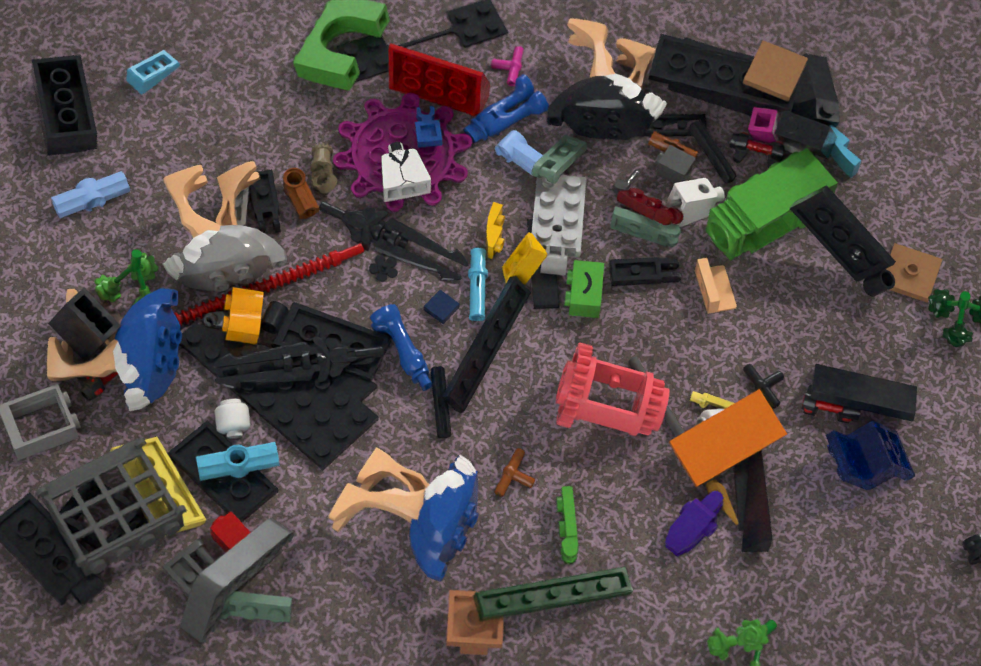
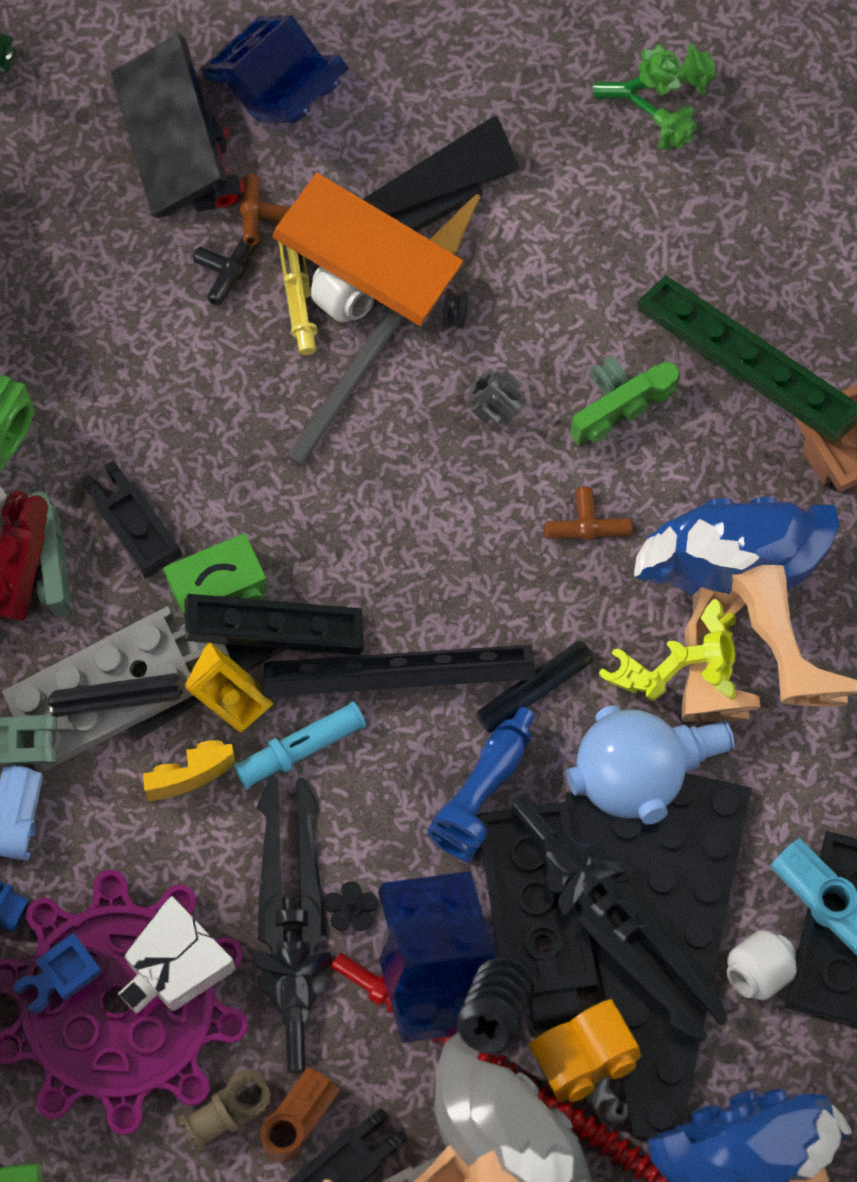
camera: 115 degrees left, 10 degrees up
(289, 275) = (495, 1004): none -> black piece
(330, 275) = (432, 951): none -> clear blue bracket
(368, 417) = (637, 762): none -> light blue piece
(396, 471) = (716, 650): none -> neon yellow piece
(441, 306) = (369, 778): dark blue tile -> none
(544, 297) = (273, 624): none -> black tile
(547, 207) = (115, 695): none -> black axle
(576, 383) = (417, 475): coral piece -> none
(587, 526) = (609, 375): none -> sand green bush
(608, 464) = (496, 397): none -> dark grey gear
(674, 474) = (455, 308): none -> black bush
(694, 523) = (518, 241): dark purple hinge -> none
(714, 287) = (99, 409): light nougat panel -> none
(790, 410) = (253, 210): none -> dark orange piece

